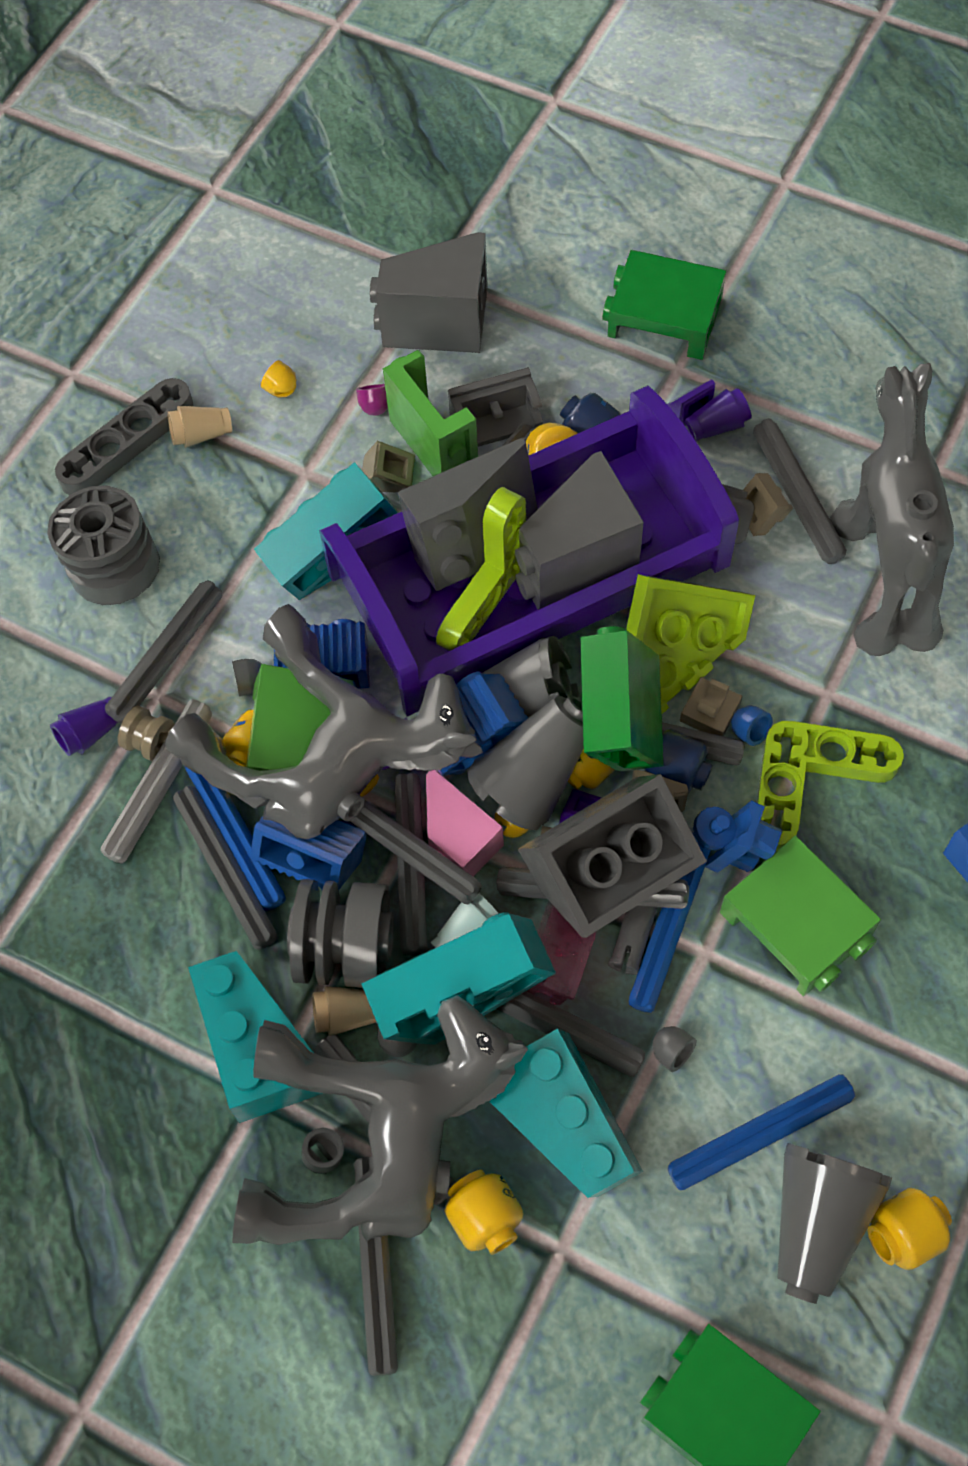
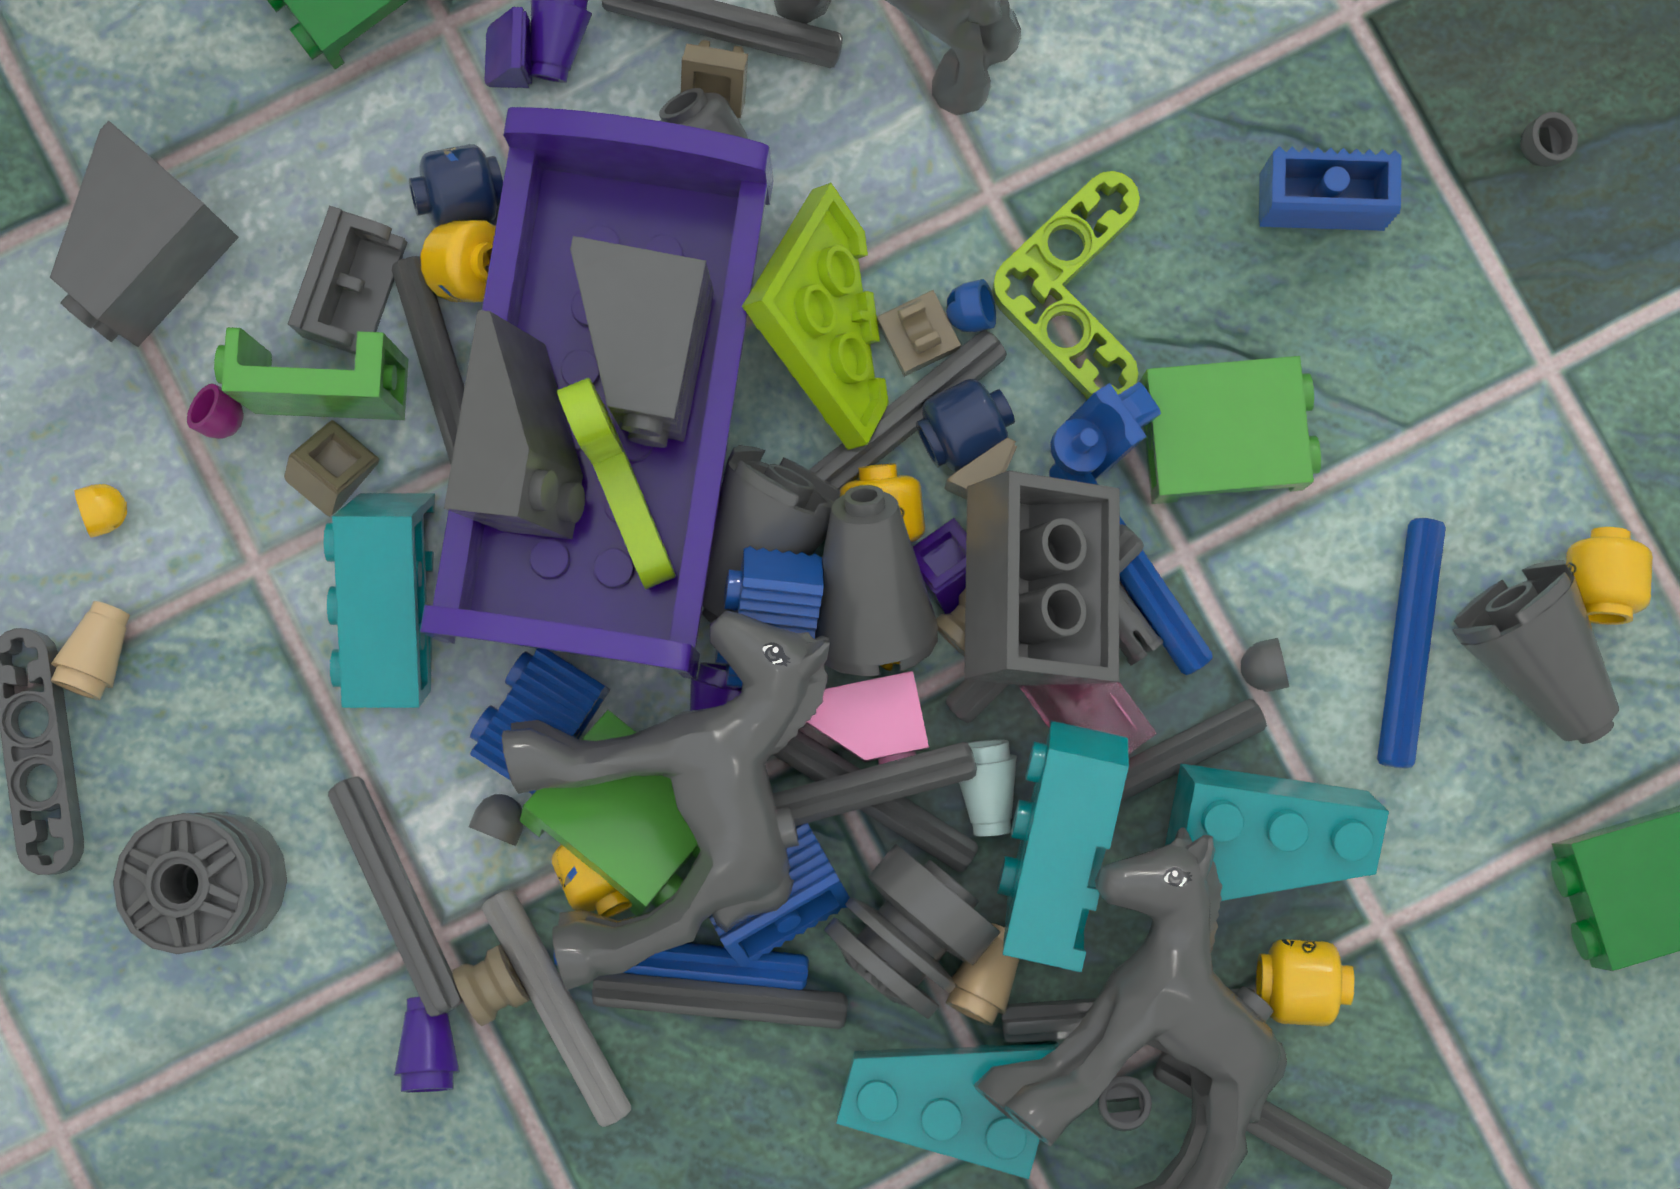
camera: 55 degrees left, 20 degrees up
(621, 700) = (886, 444): green brick -> none

